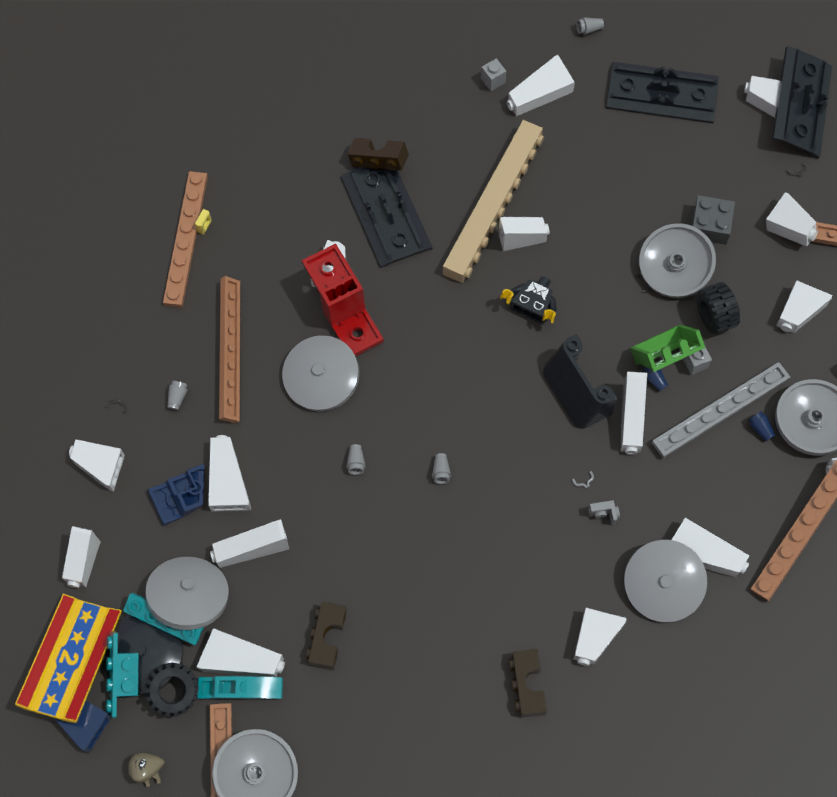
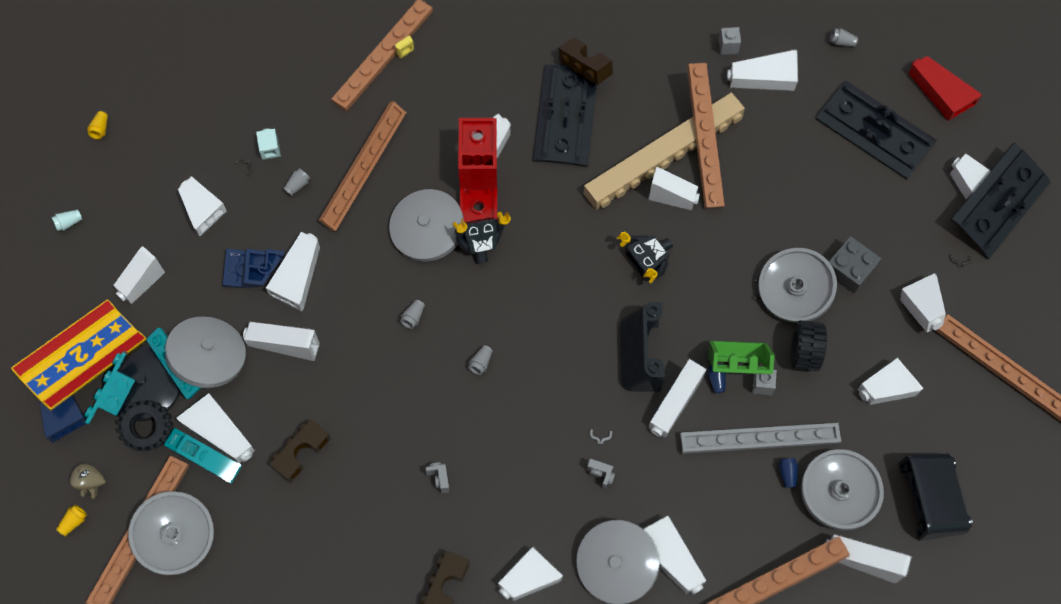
camera: 25 degrees right, 0 degrees up
(129, 373) = (268, 143): none -> light aqua brick
(377, 357) = (480, 235): none -> torso
(470, 592) = (441, 479): none -> light grey bracket
(523, 169) = (705, 135): none -> nougat plate
(699, 28) = (943, 88): none -> red slope

